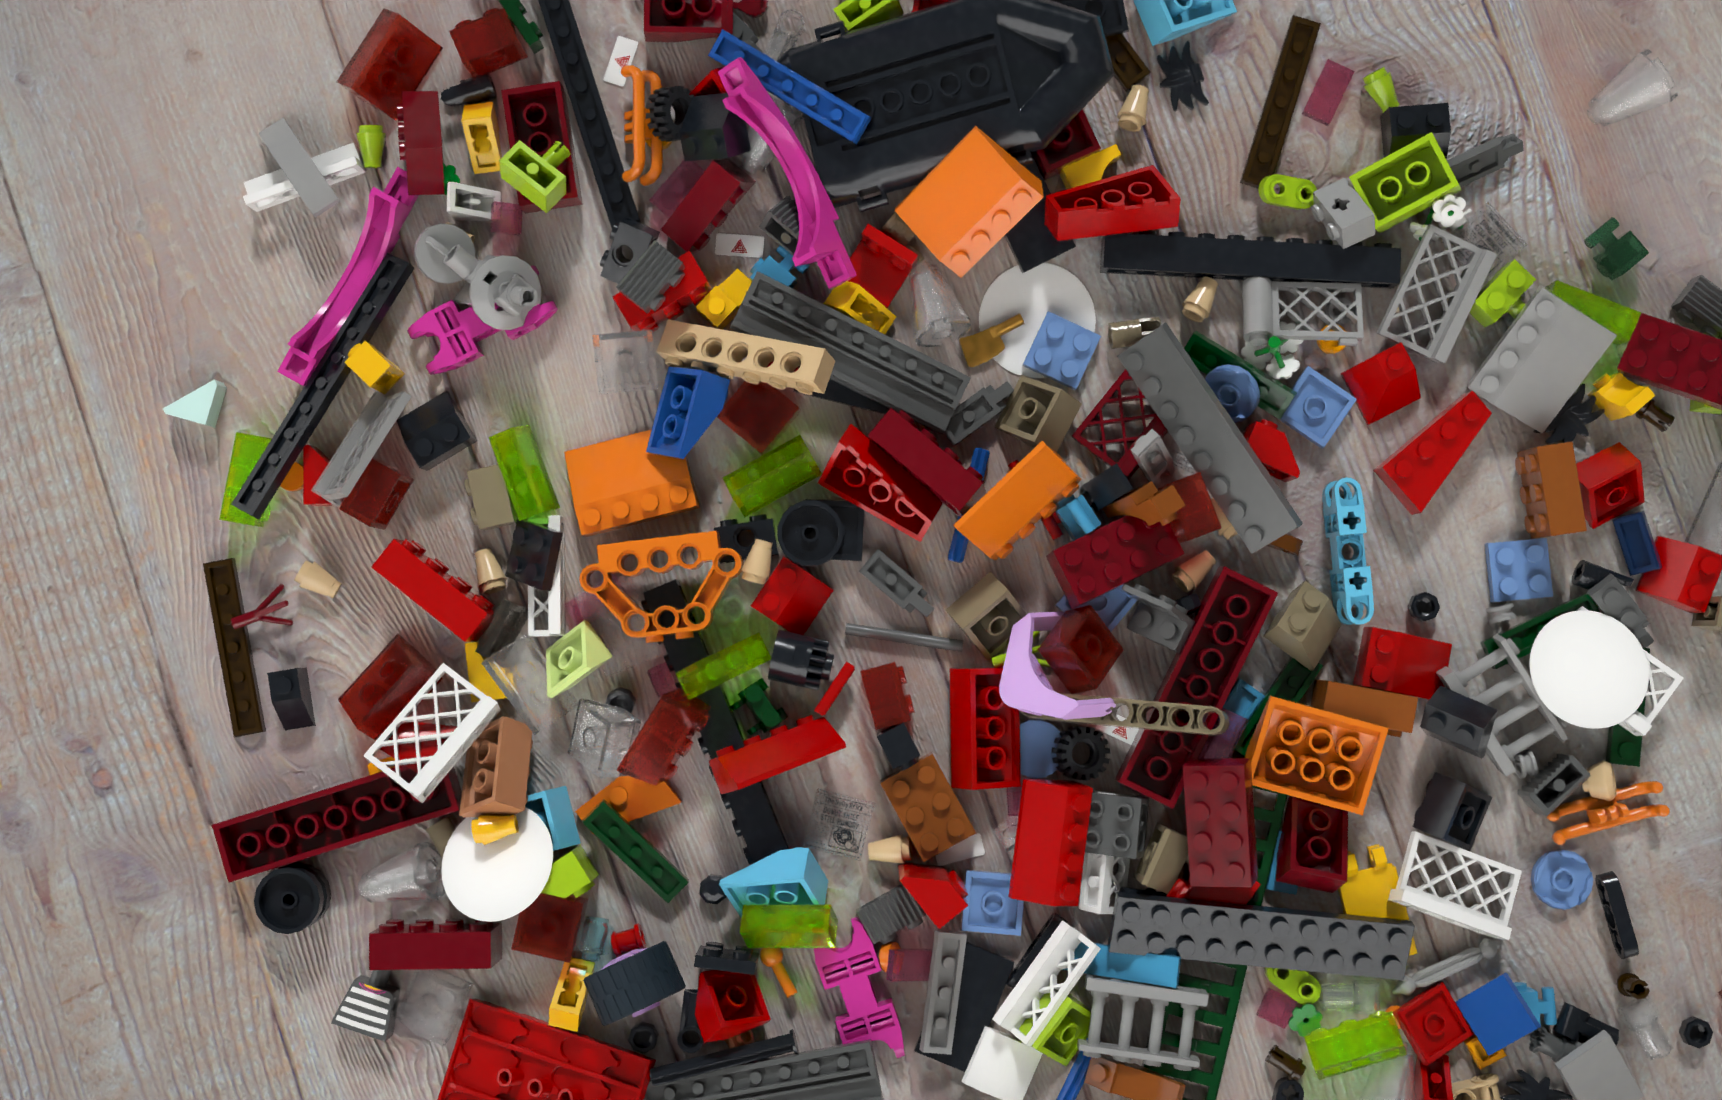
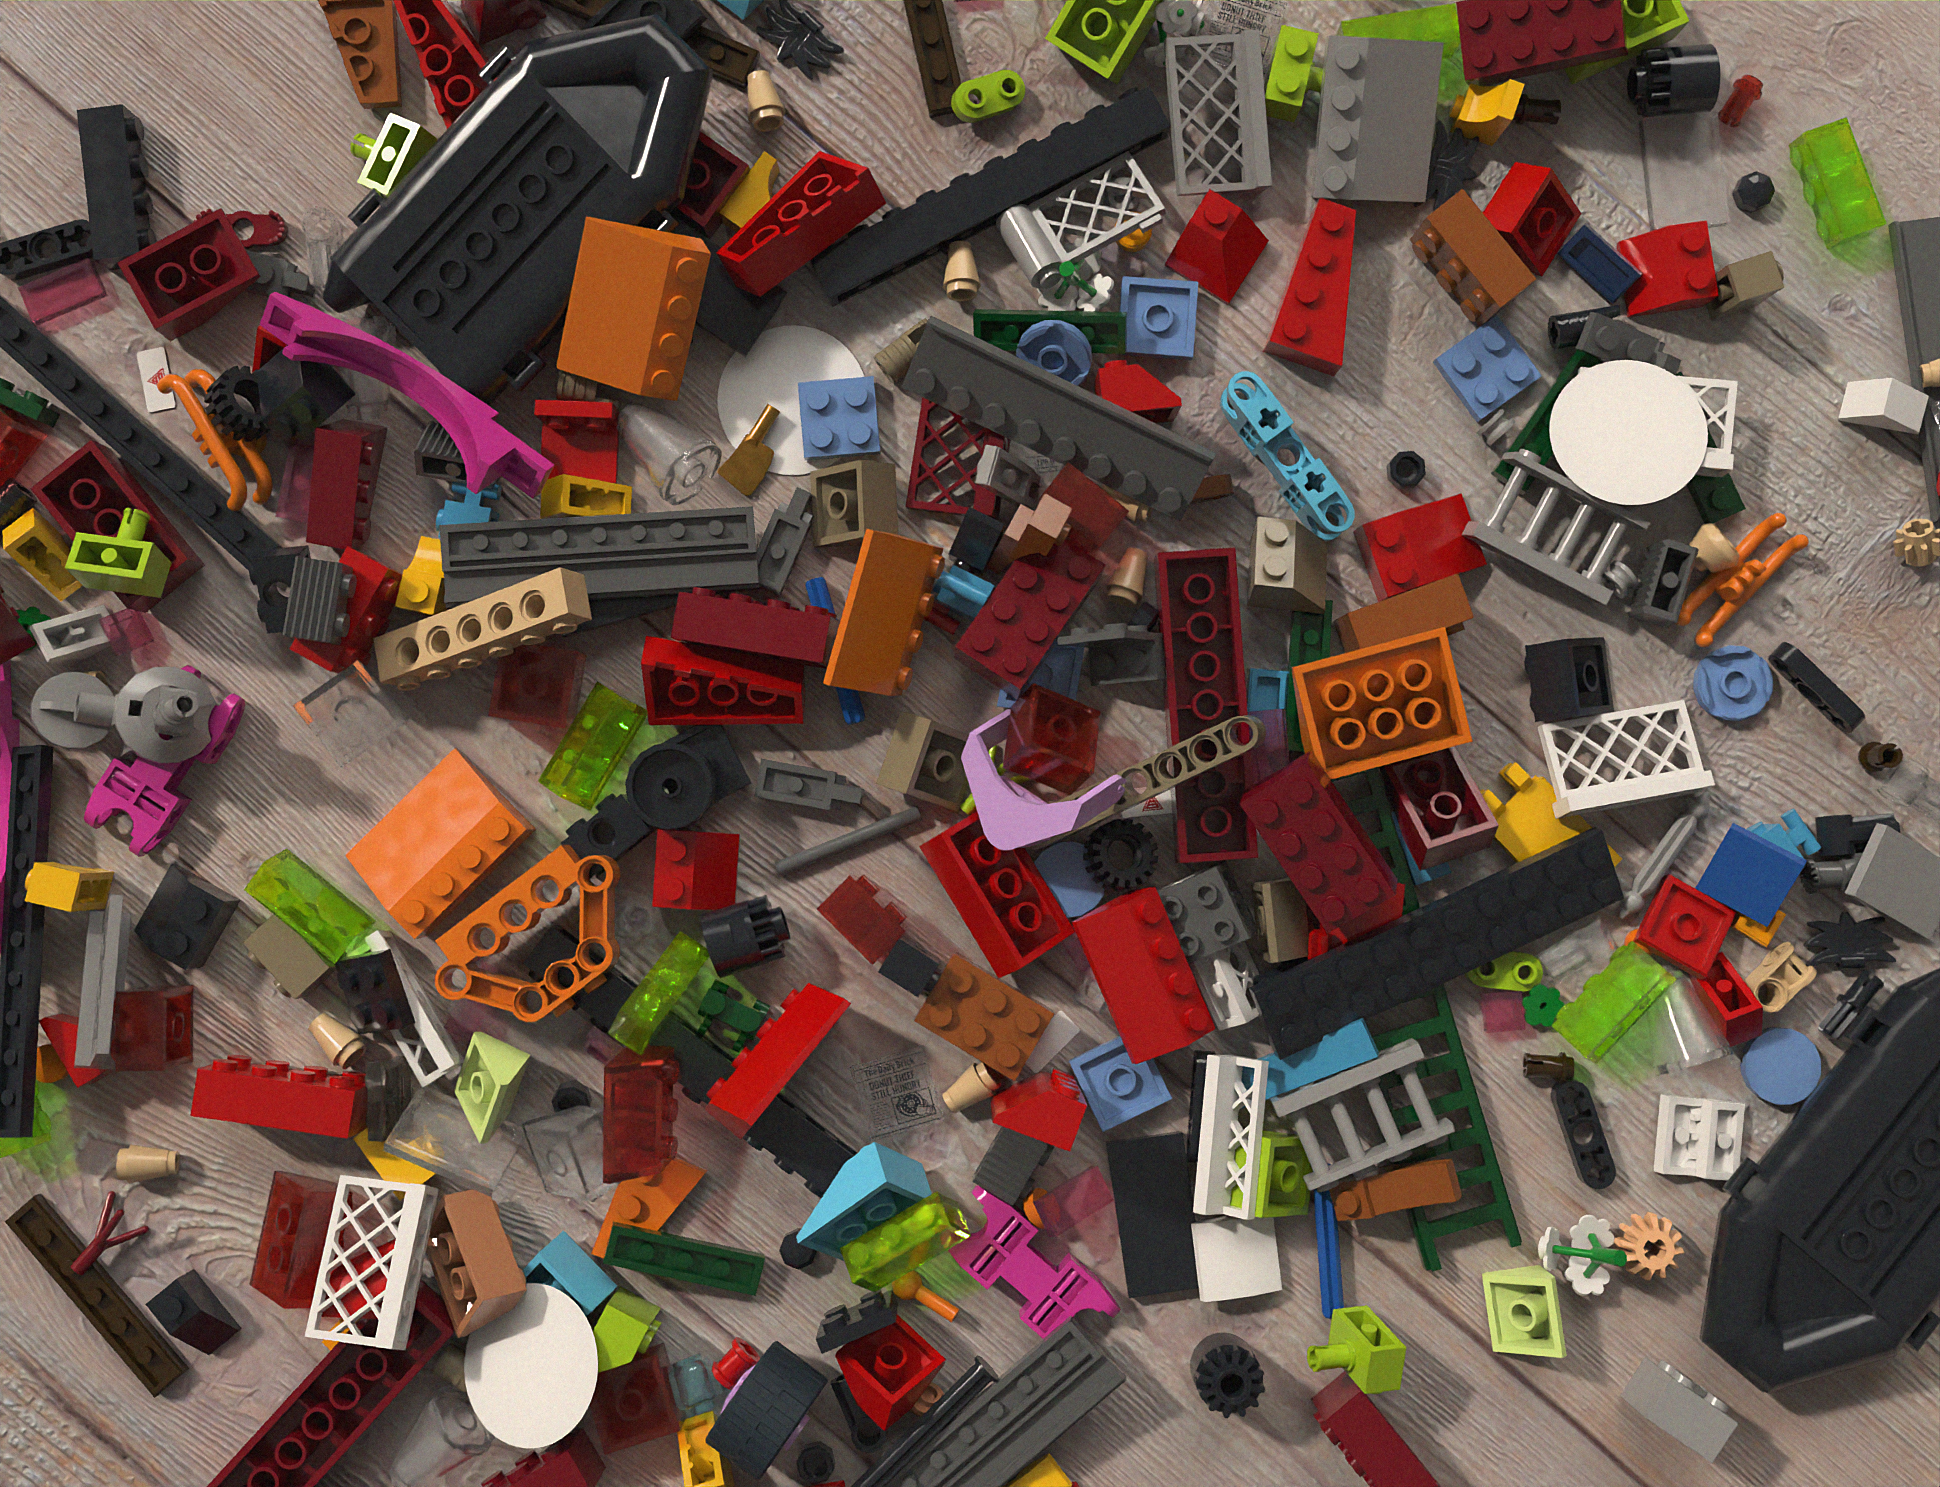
camera: 40 degrees left, 0 degrees up
(491, 828) = (502, 1331): yellow cone -> none
(686, 410) = (451, 727): blue slope -> none
(739, 245) = (410, 509): white sticker -> none
(758, 562) = (632, 853): tan cone -> none
(793, 88) = (361, 294): blue tile -> none
(834, 689) = (803, 945): red tile -> none
(943, 992) = (1121, 1213): light grey plate -> none
(1343, 213) = (1063, 83): light grey brick -> none
(1459, 721) = (1518, 574): black slope -> none

